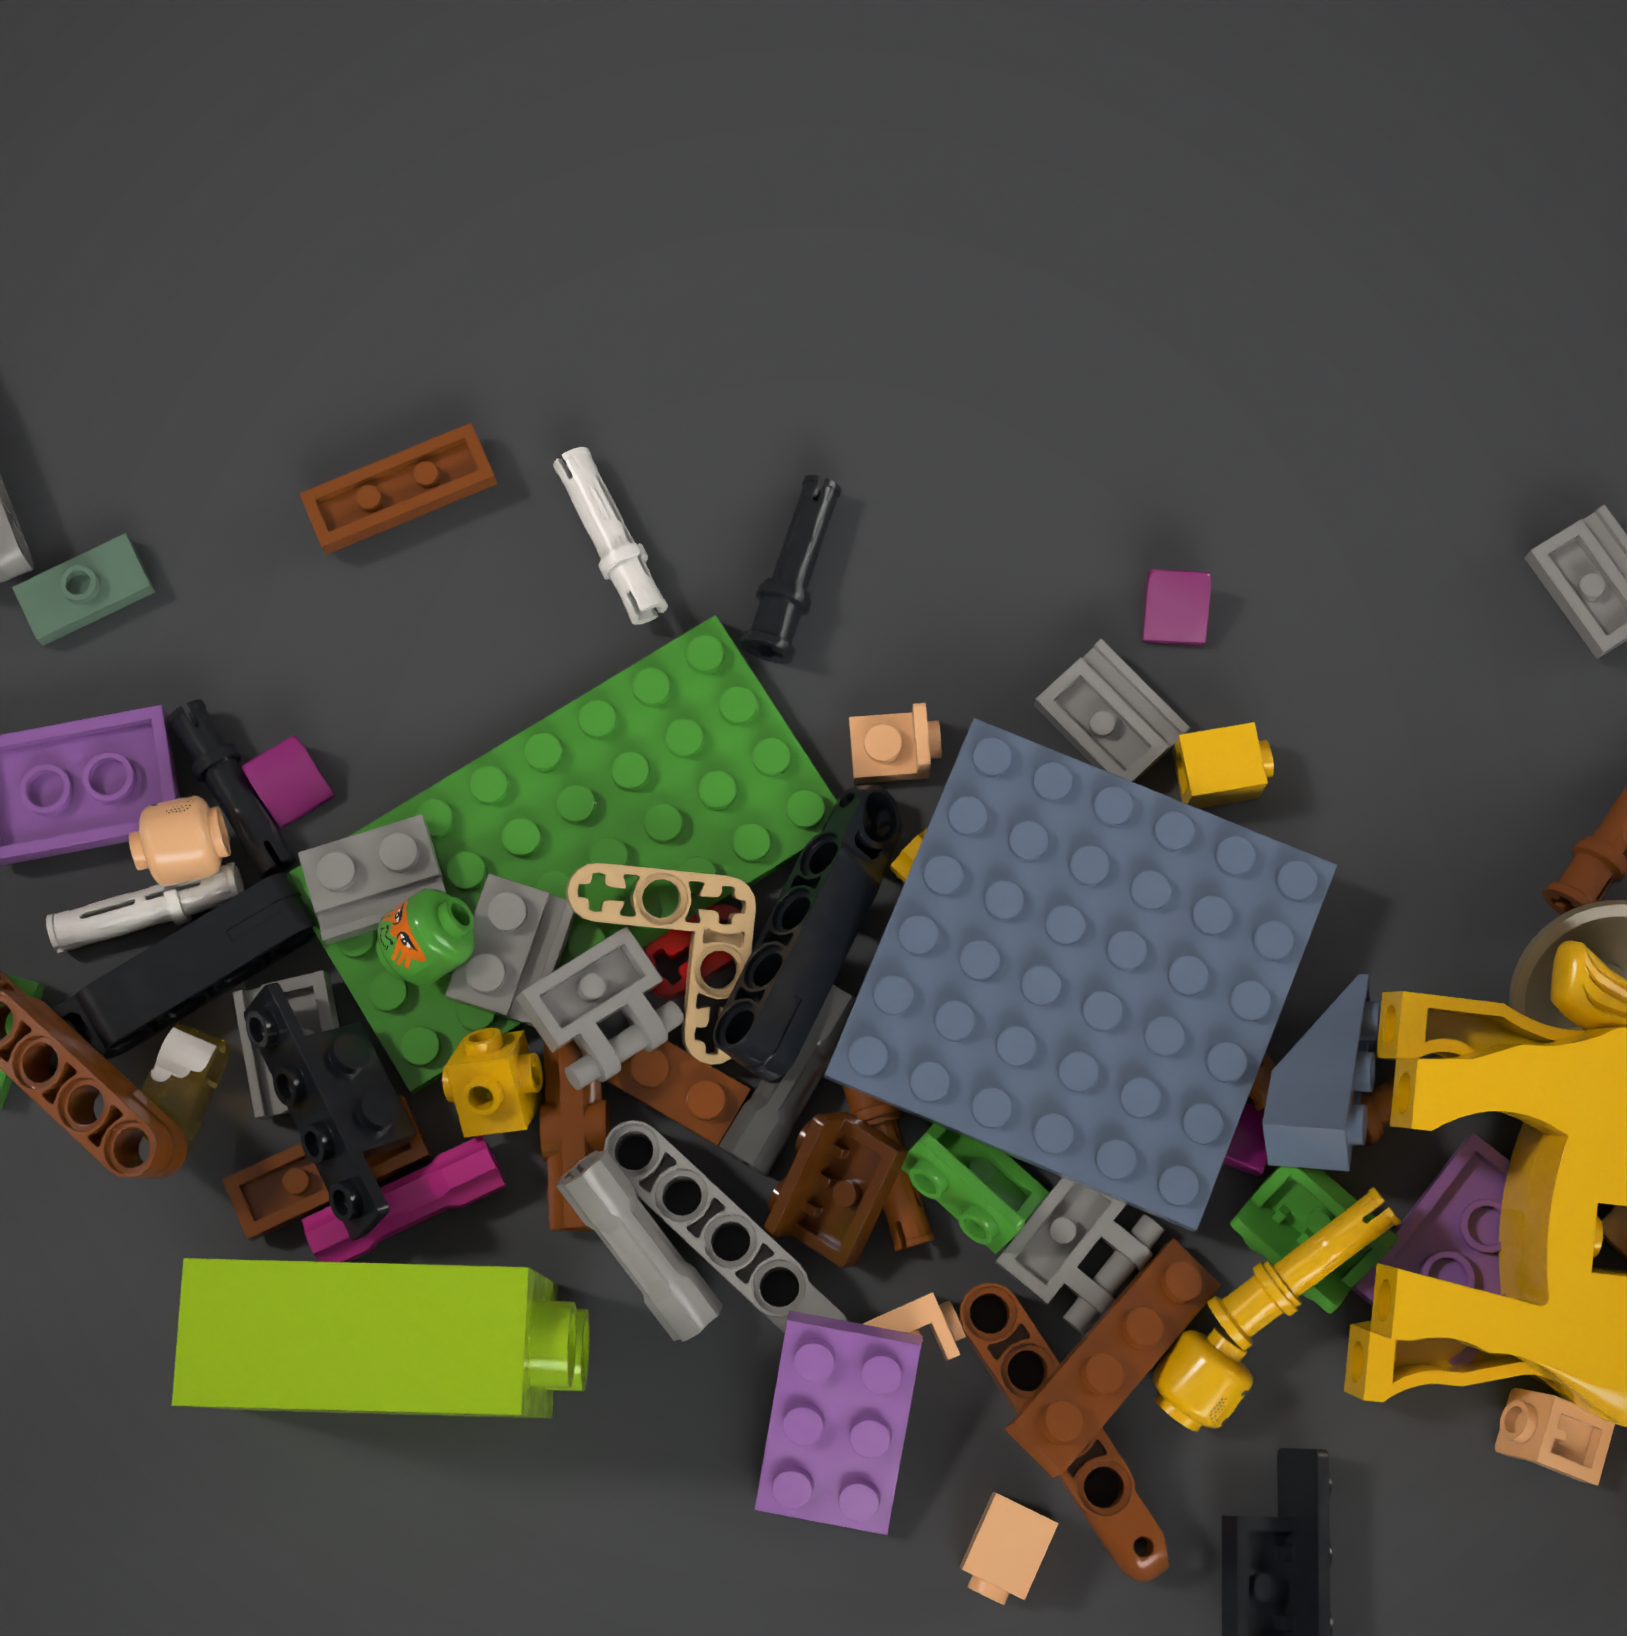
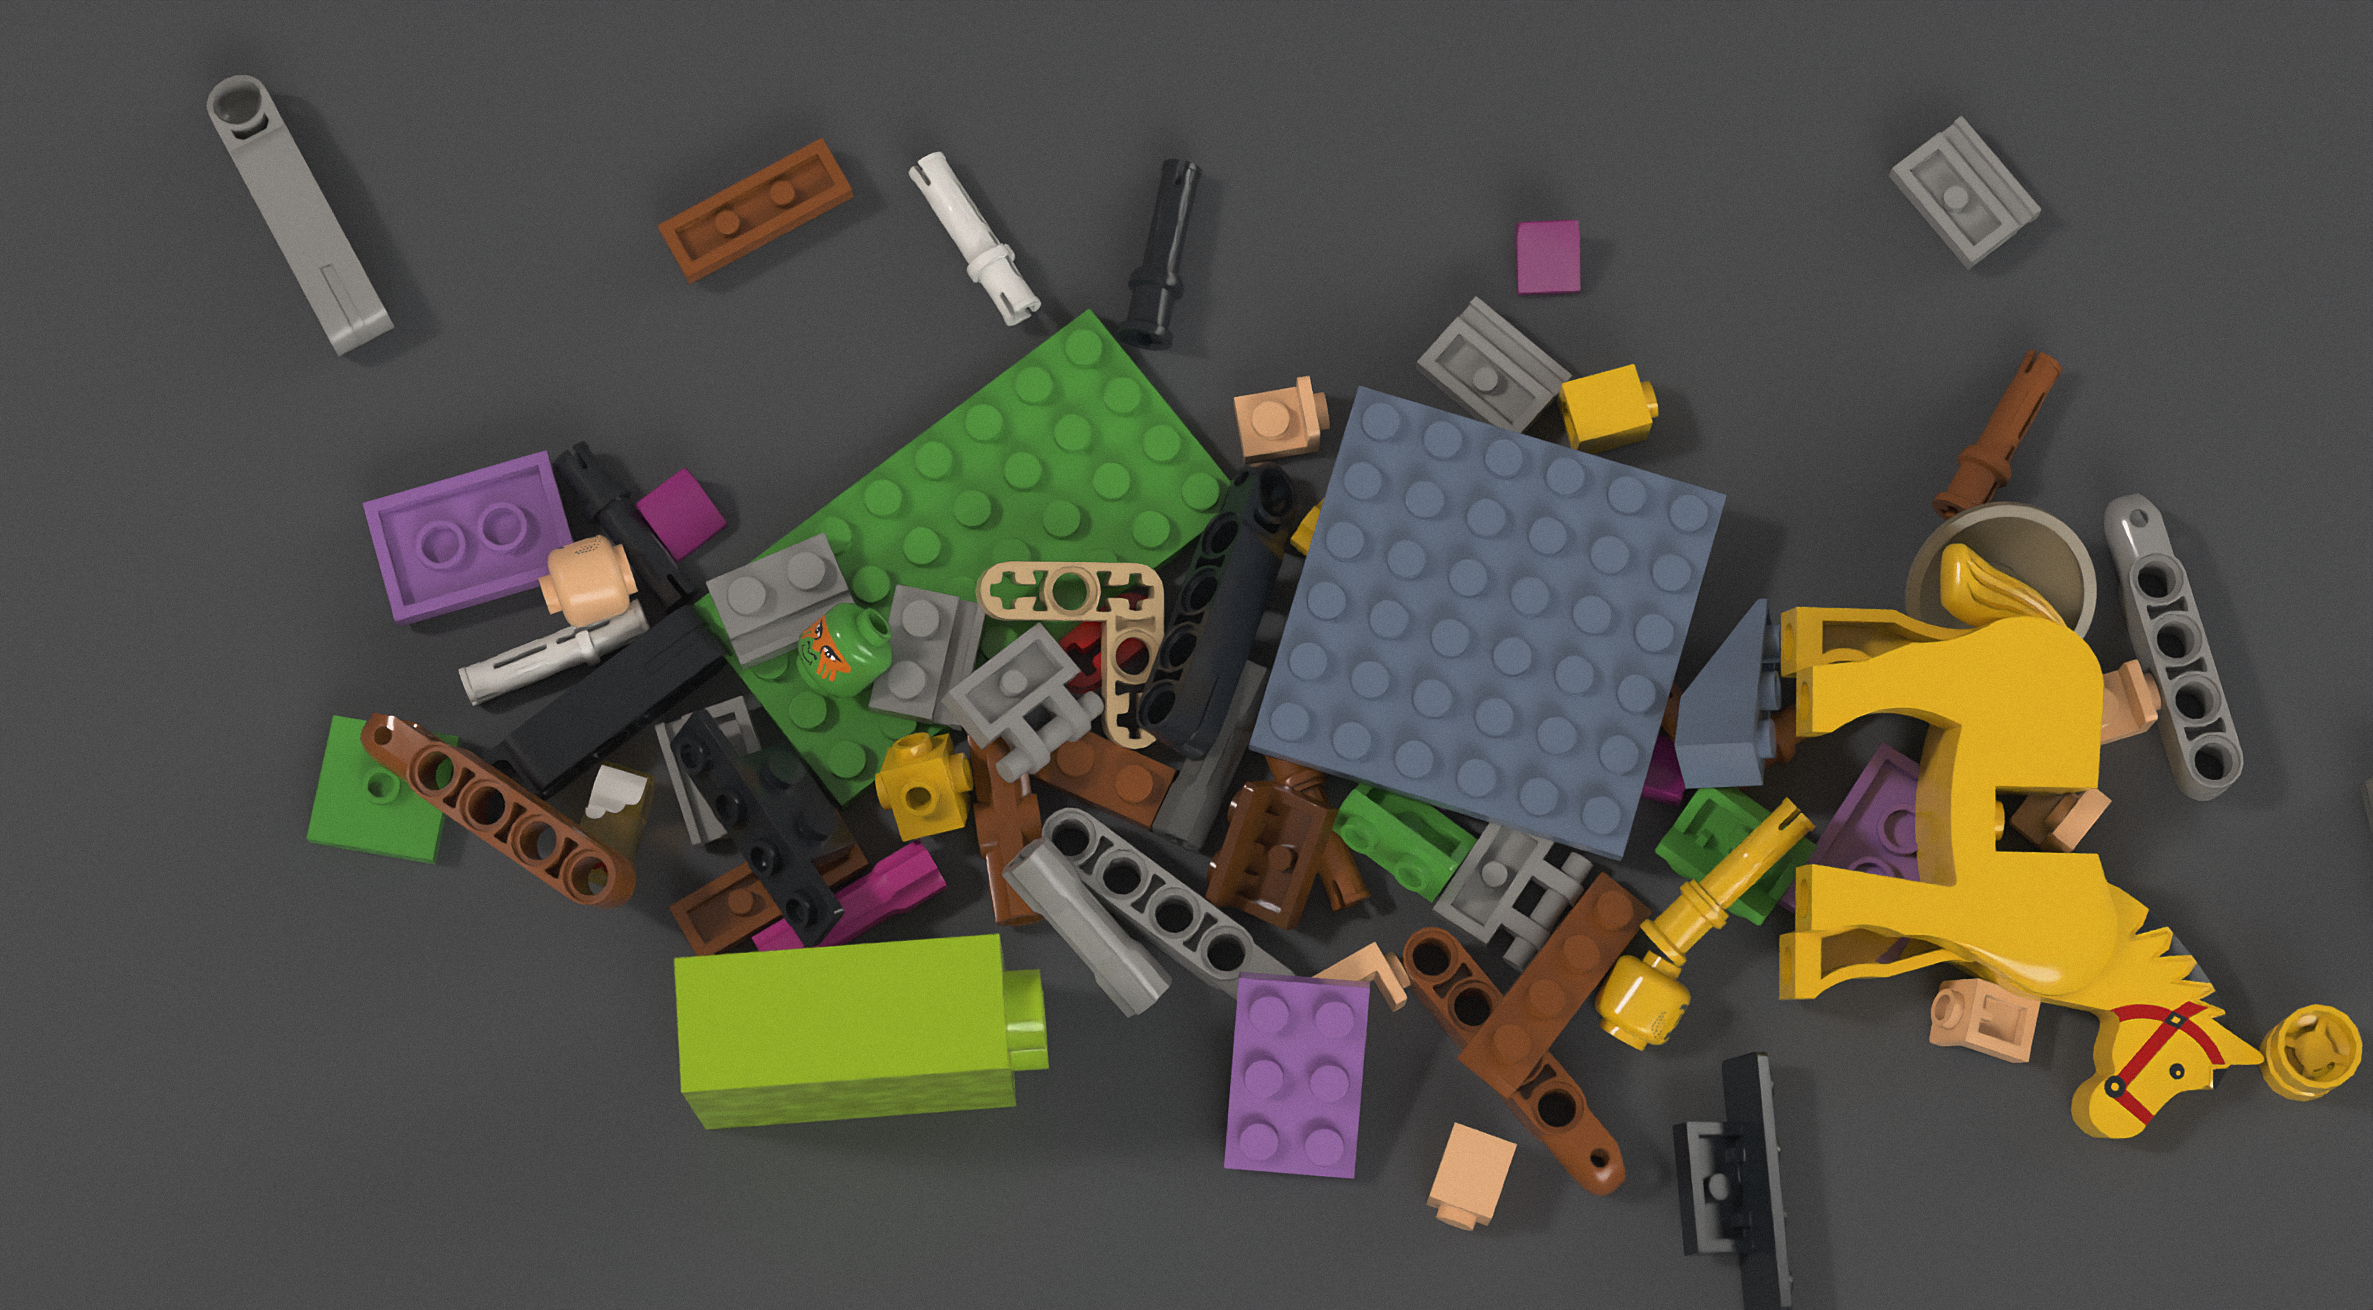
camera: 10 degrees left, 0 degrees up
(83, 589) = (448, 342): sand green plate -> none

